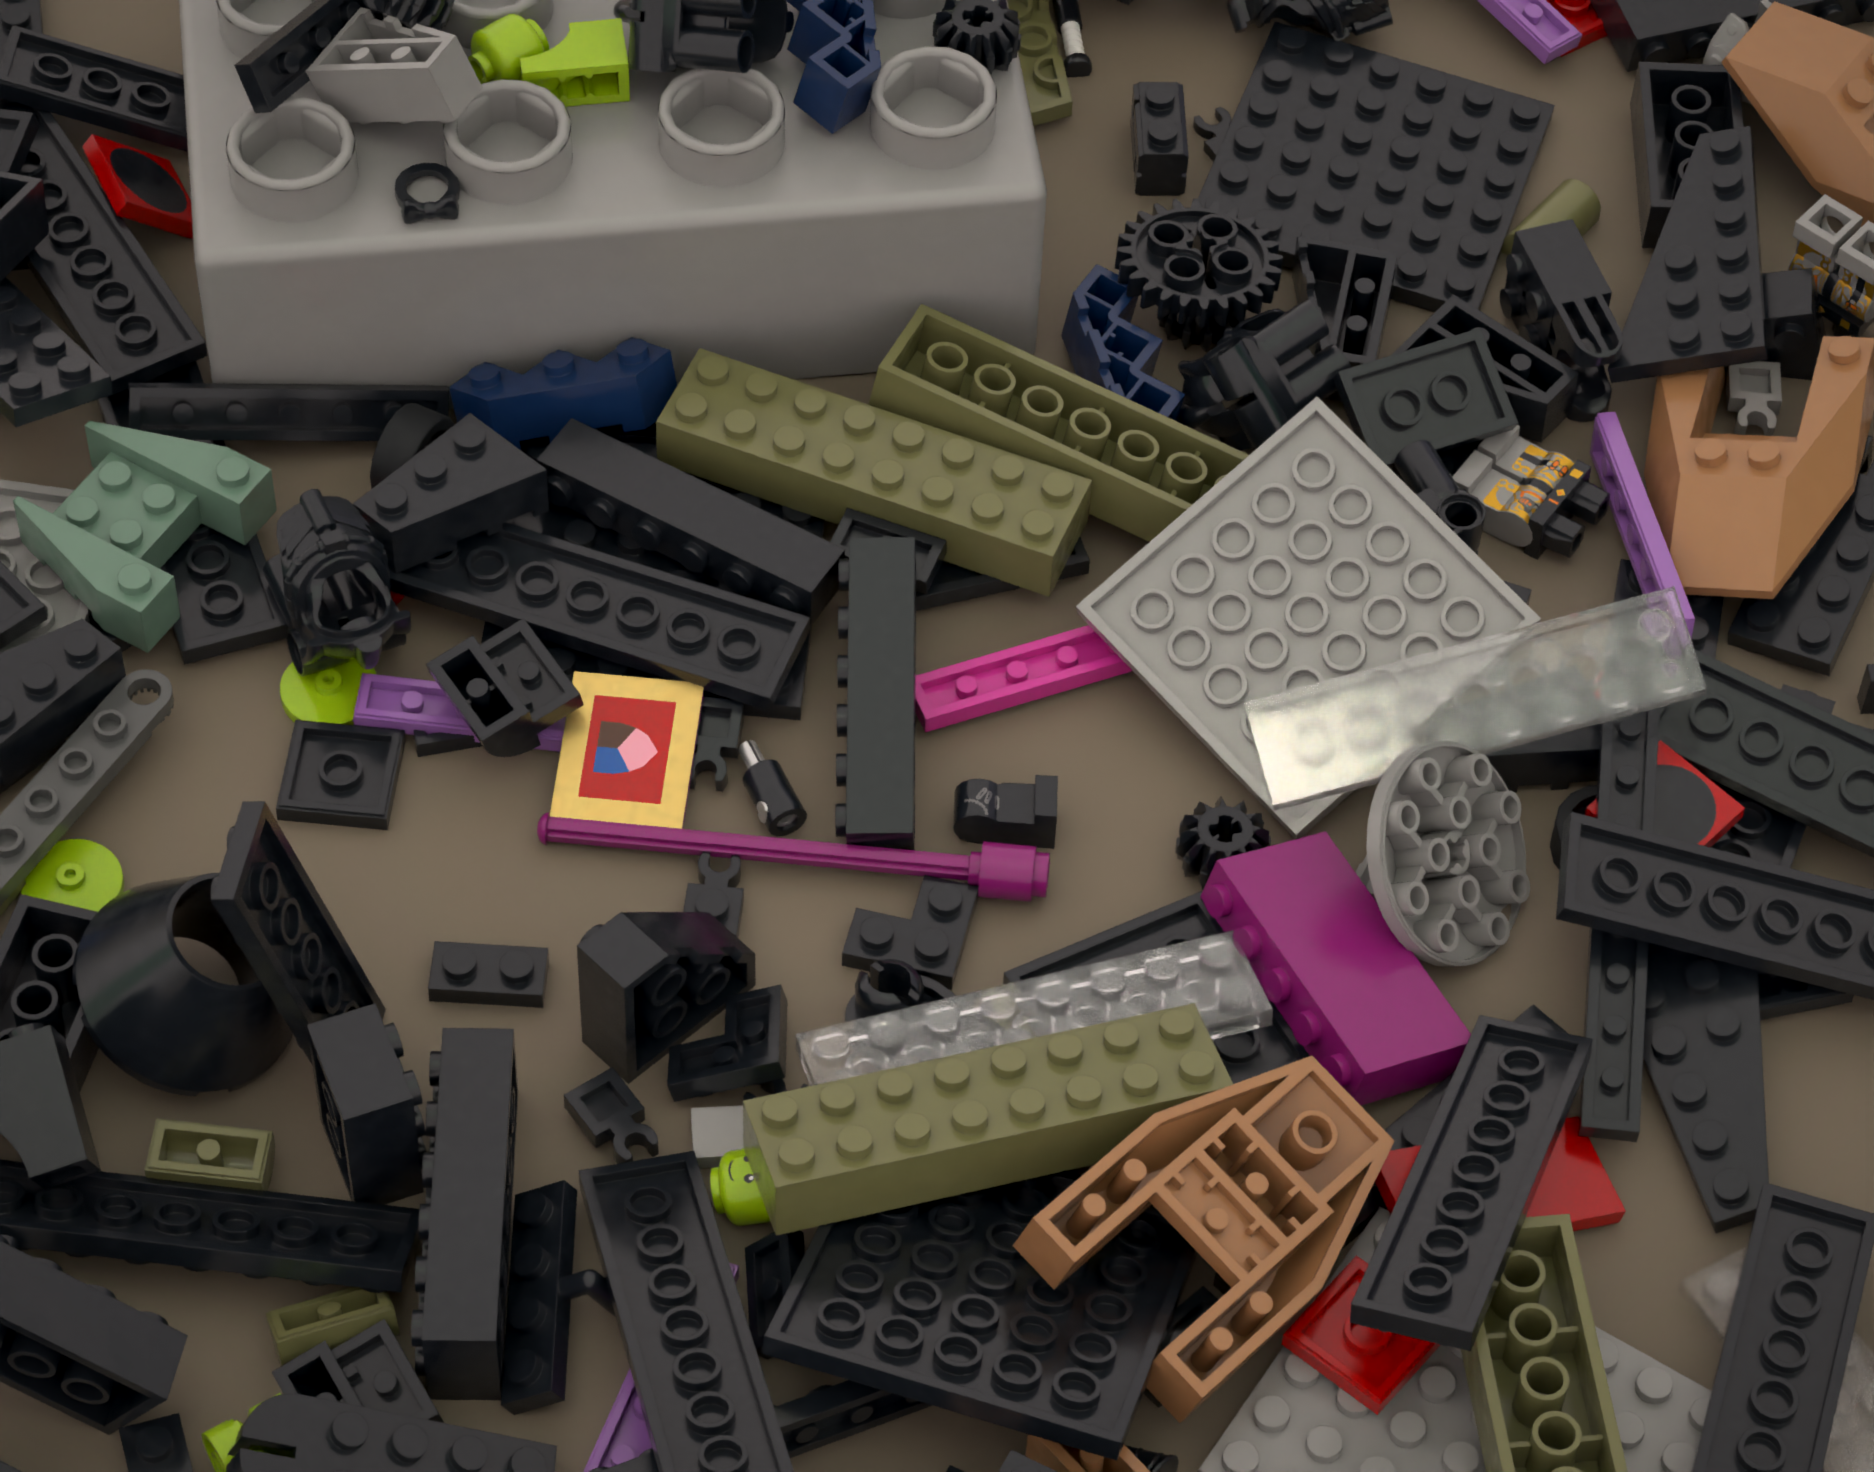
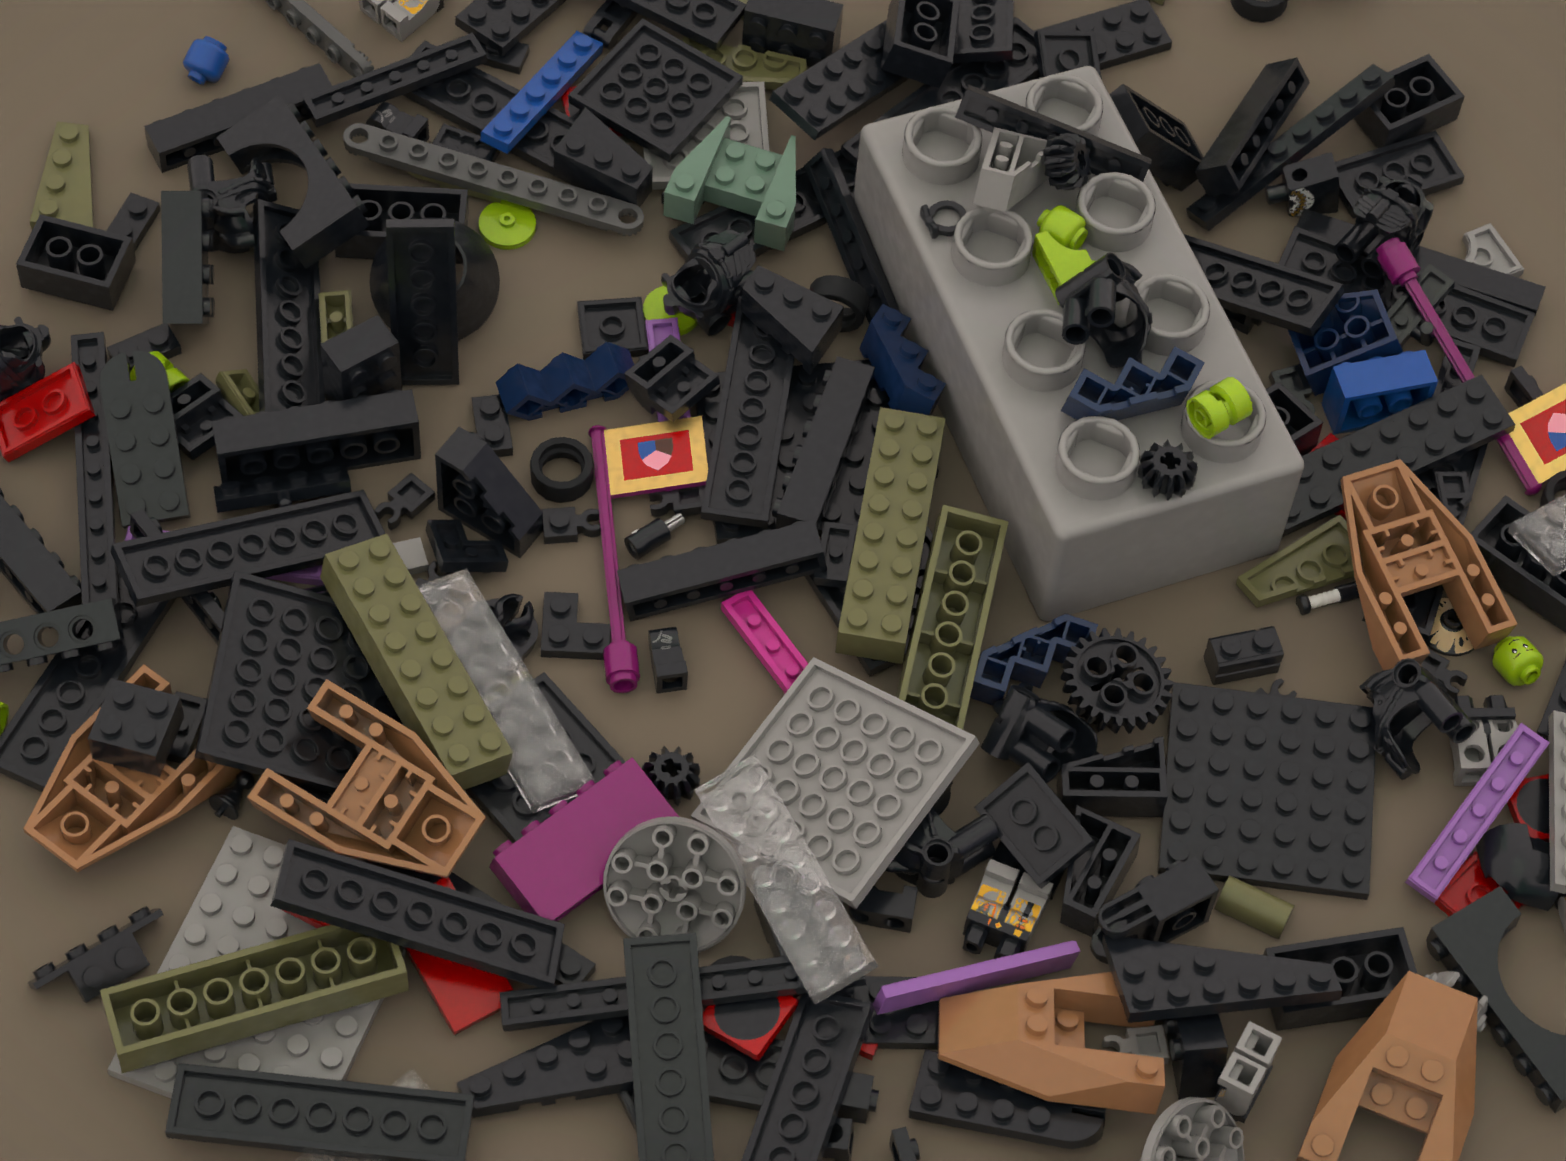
camera: 75 degrees right, 5 degrees up
(443, 842) = (565, 382): none -> dark blue brick
(603, 852) = (561, 448): none -> black tyre

